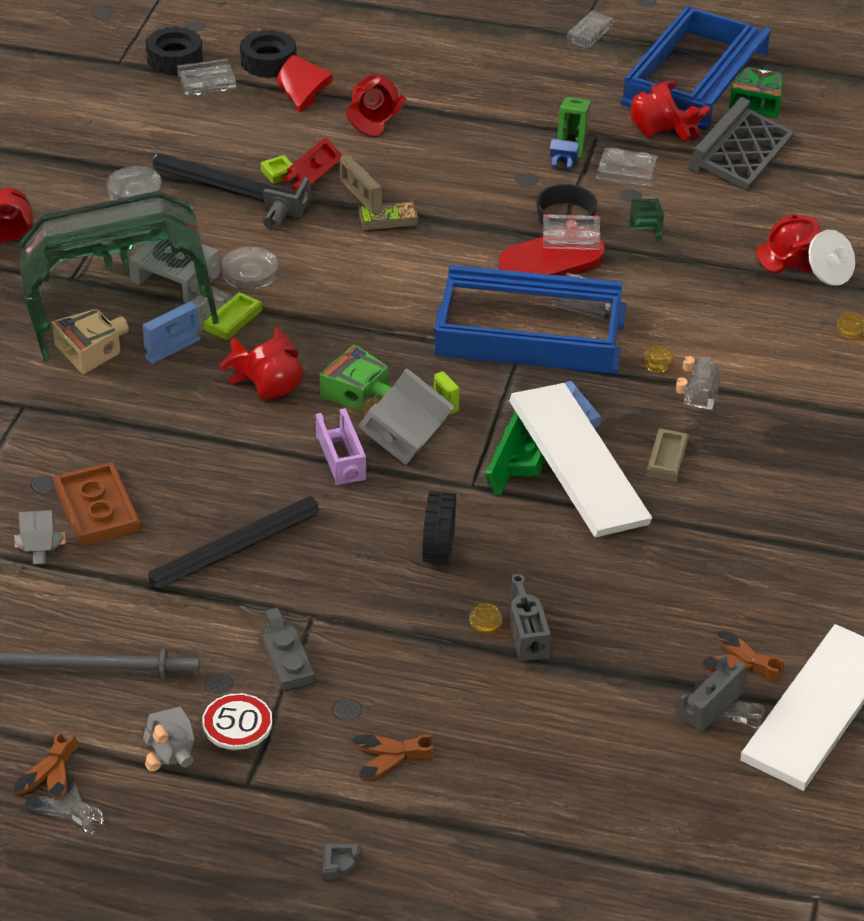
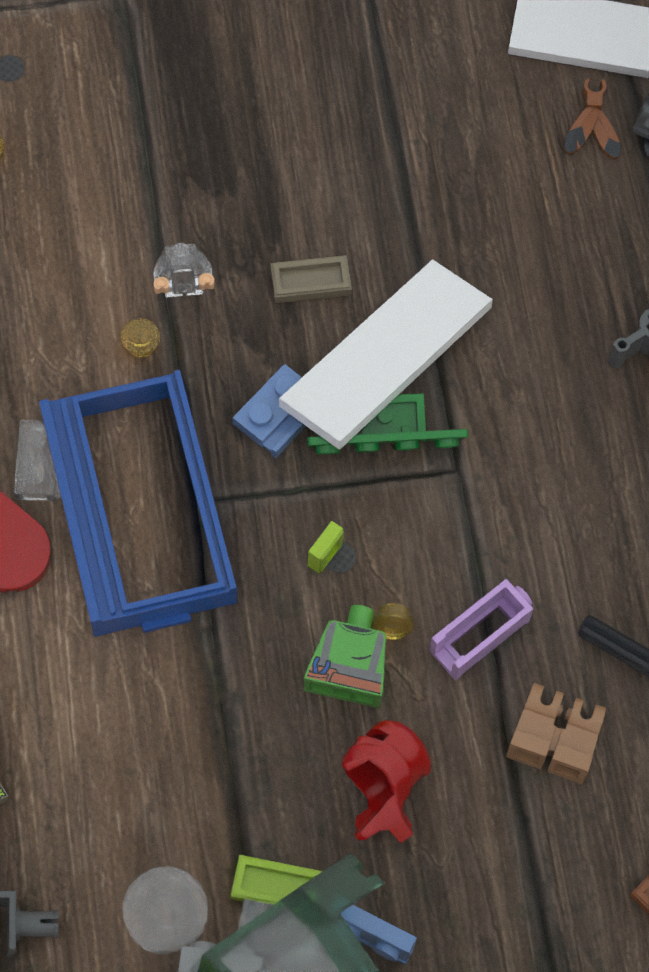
camera: 115 degrees left, 25 degrees up
(242, 459) = (569, 747): none -> medium nougat legs
(406, 417) = (405, 574): light grey panel -> none
(439, 527) = (588, 449): black tyre -> none

